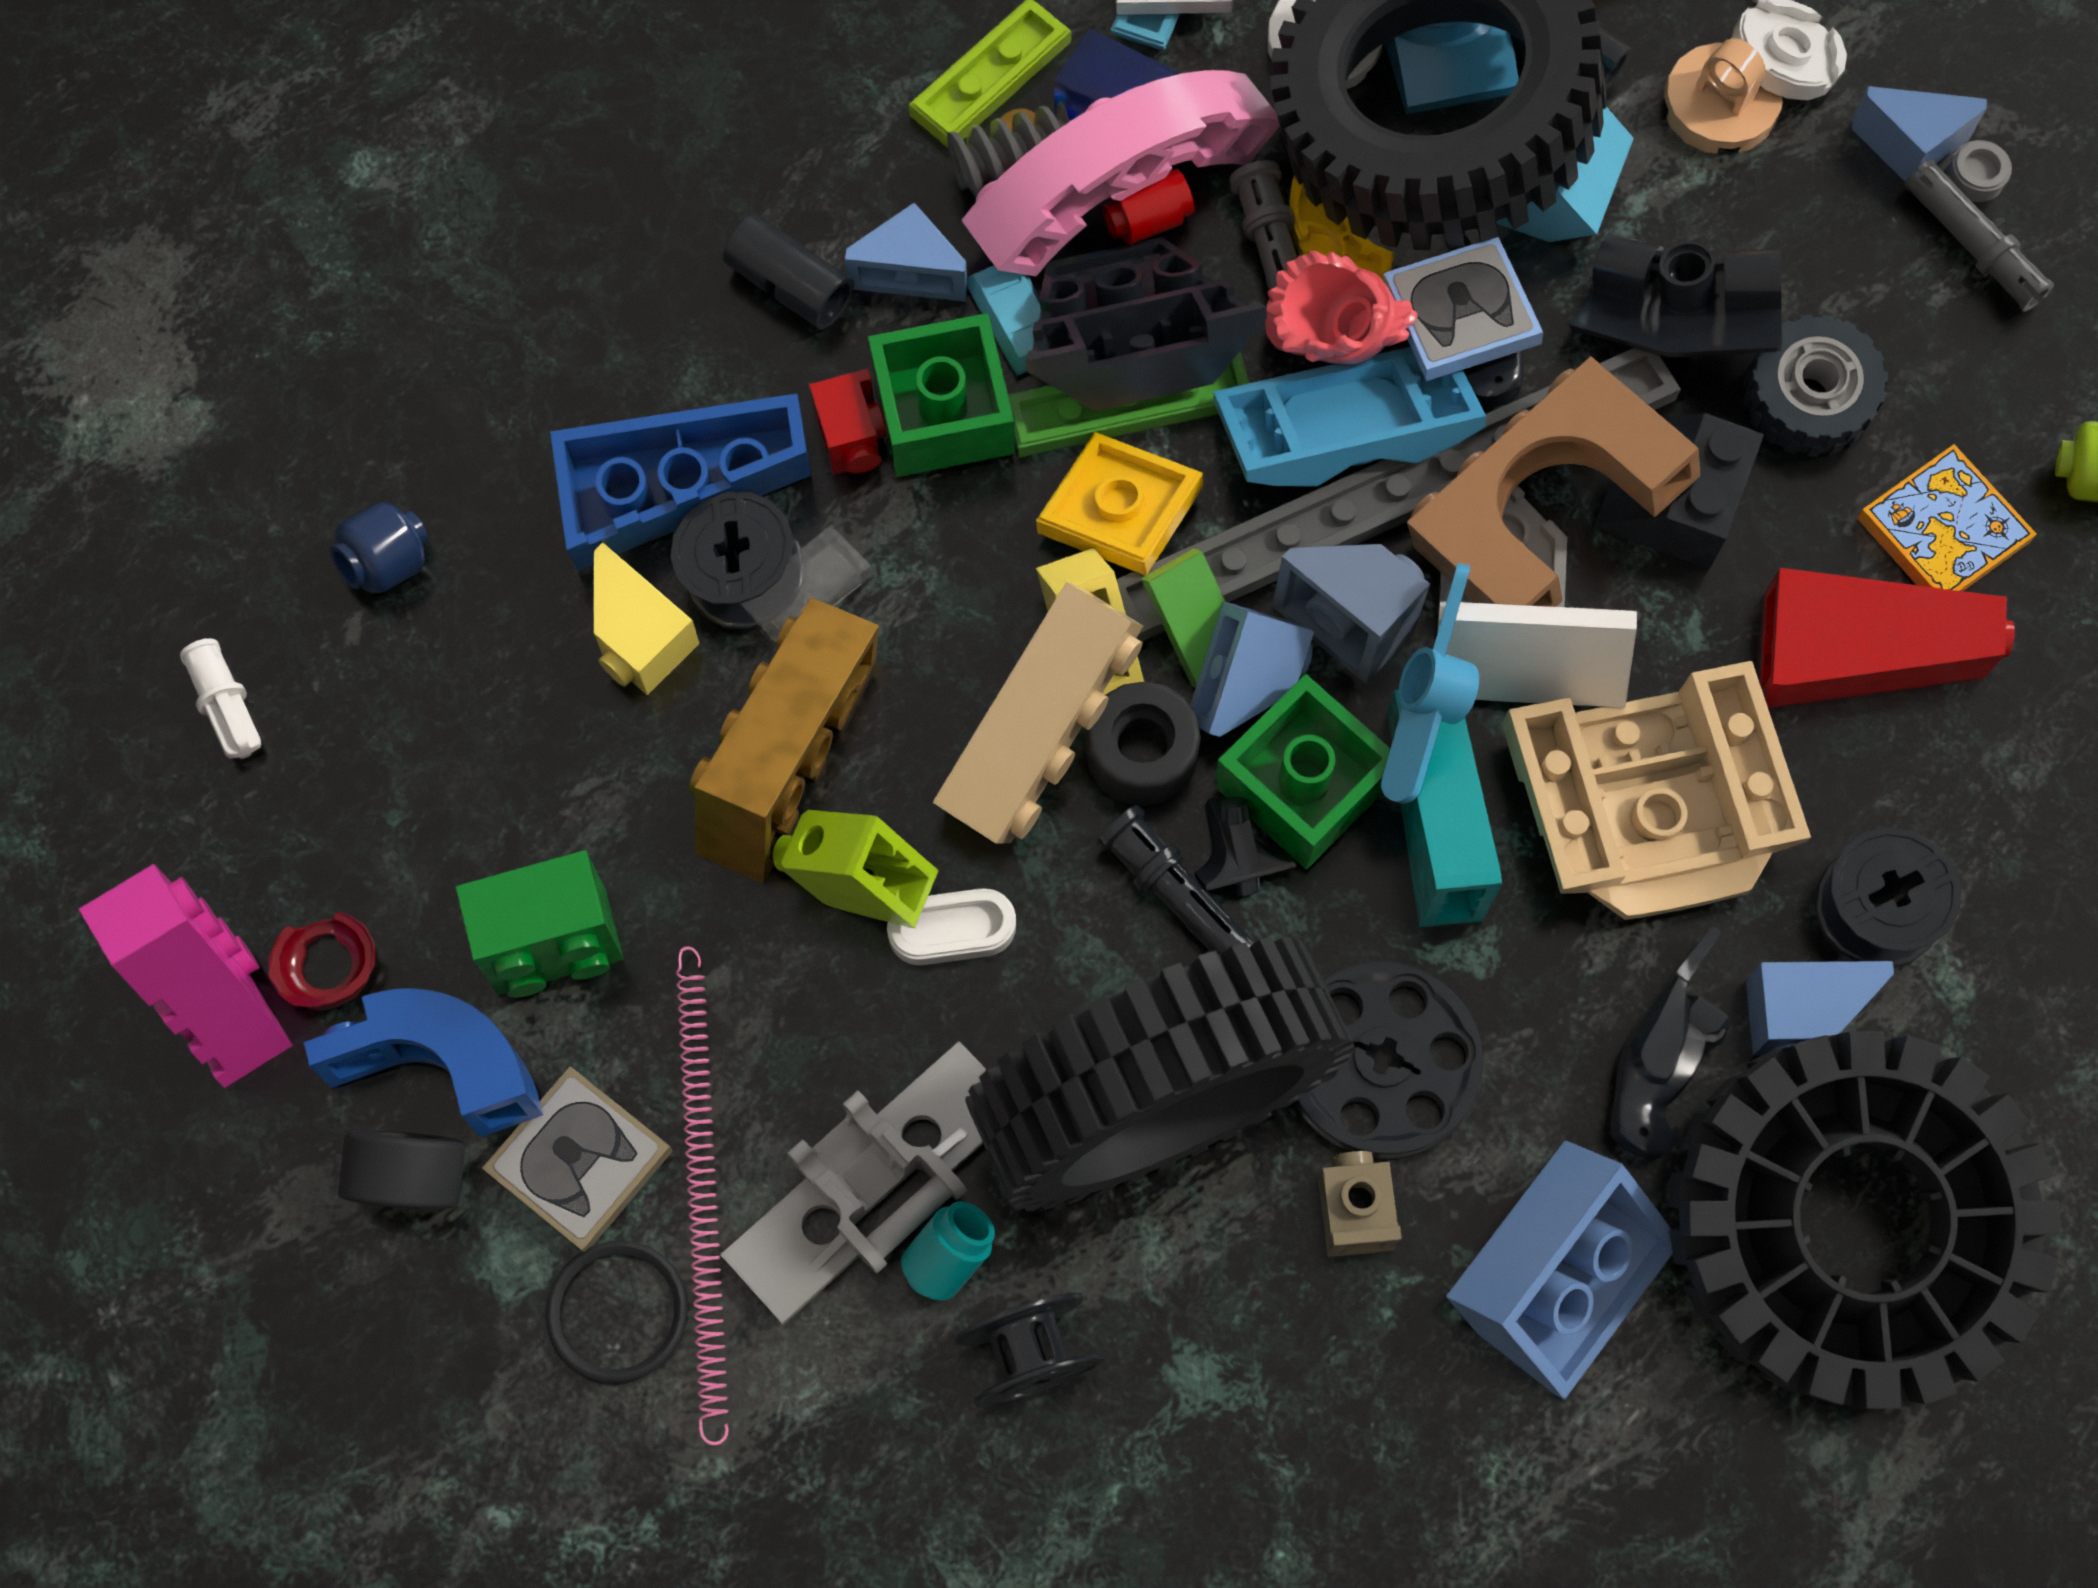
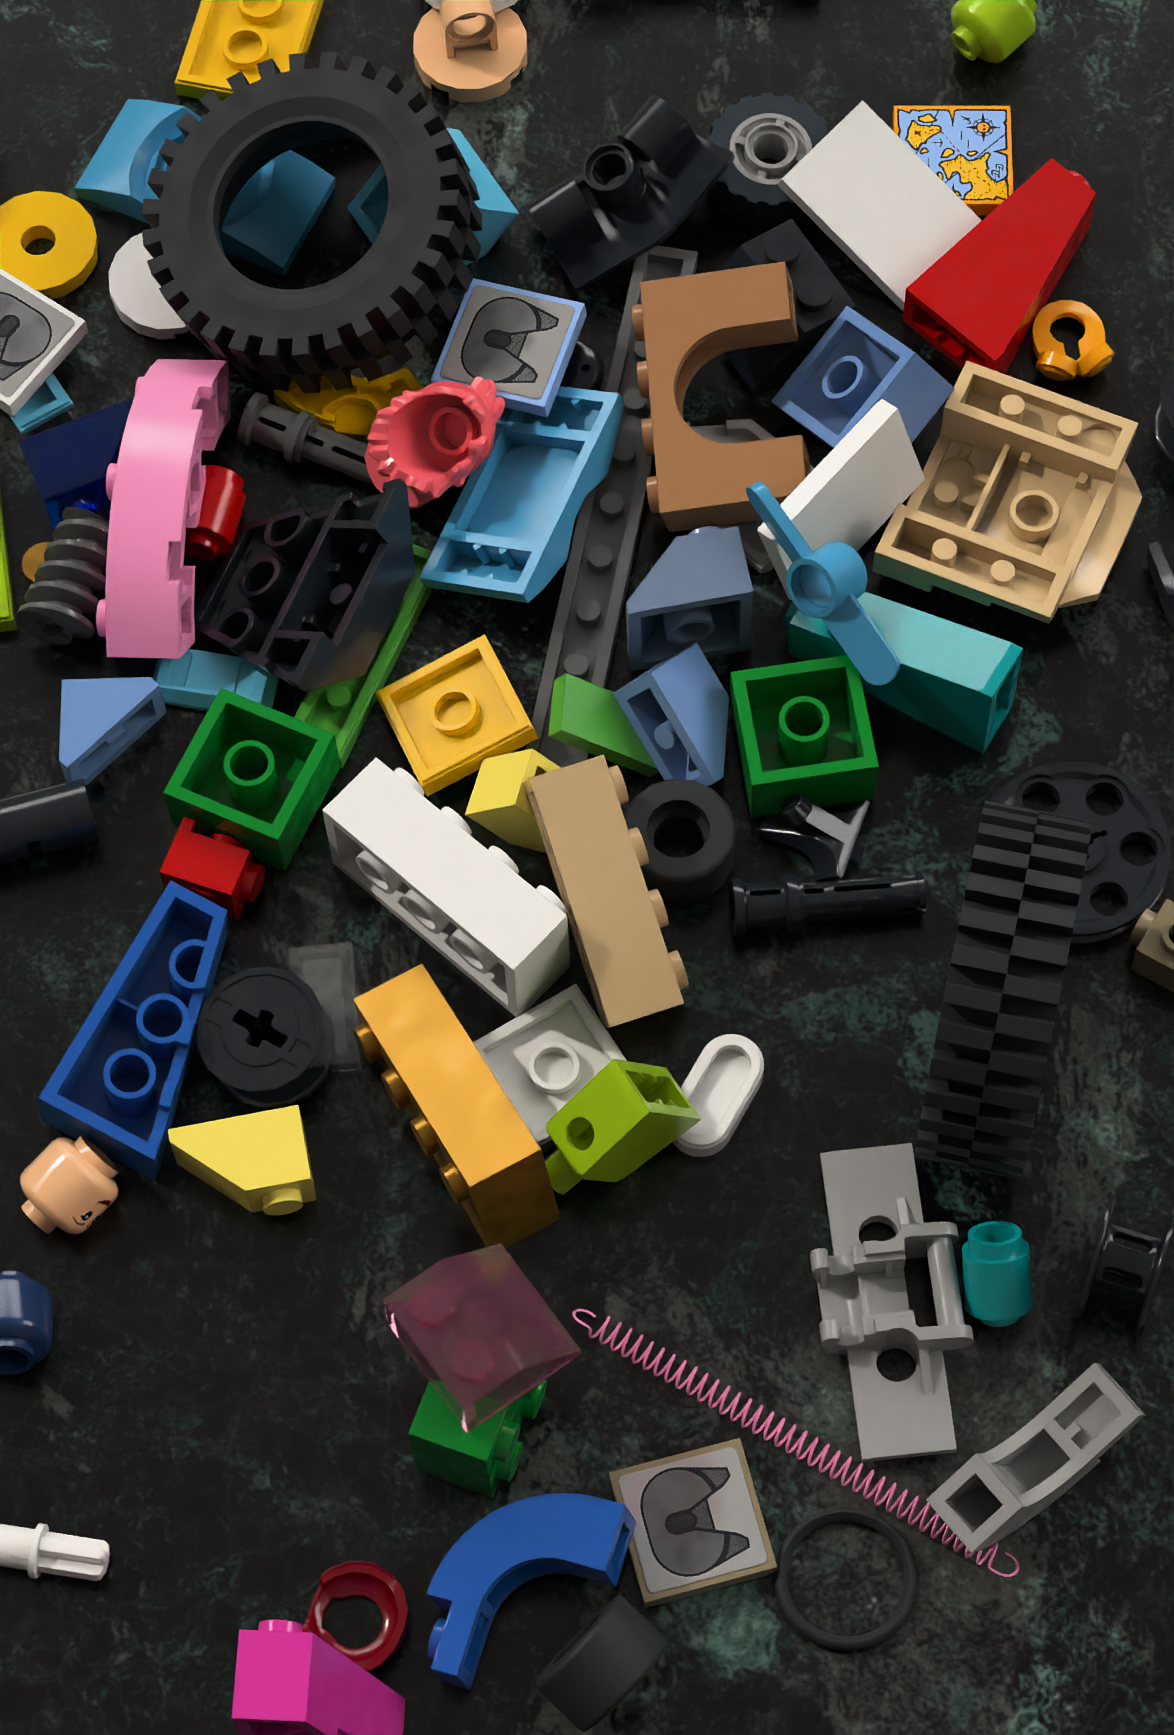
camera: 50 degrees left, 5 degrees down
(516, 510) = (69, 1185): none -> light nougat head
(564, 876) = (479, 1332): none -> clear pink slope
(802, 1393) = (1036, 1464): none -> light grey arch
(884, 776) = (548, 1057): none -> white tile
(959, 596) = (449, 886): none -> white brick
(1671, 587) = (853, 371): none -> medium blue slope
(1847, 490) = (878, 201): none -> white tile
(1866, 756) = (1051, 355): none -> light orange piece

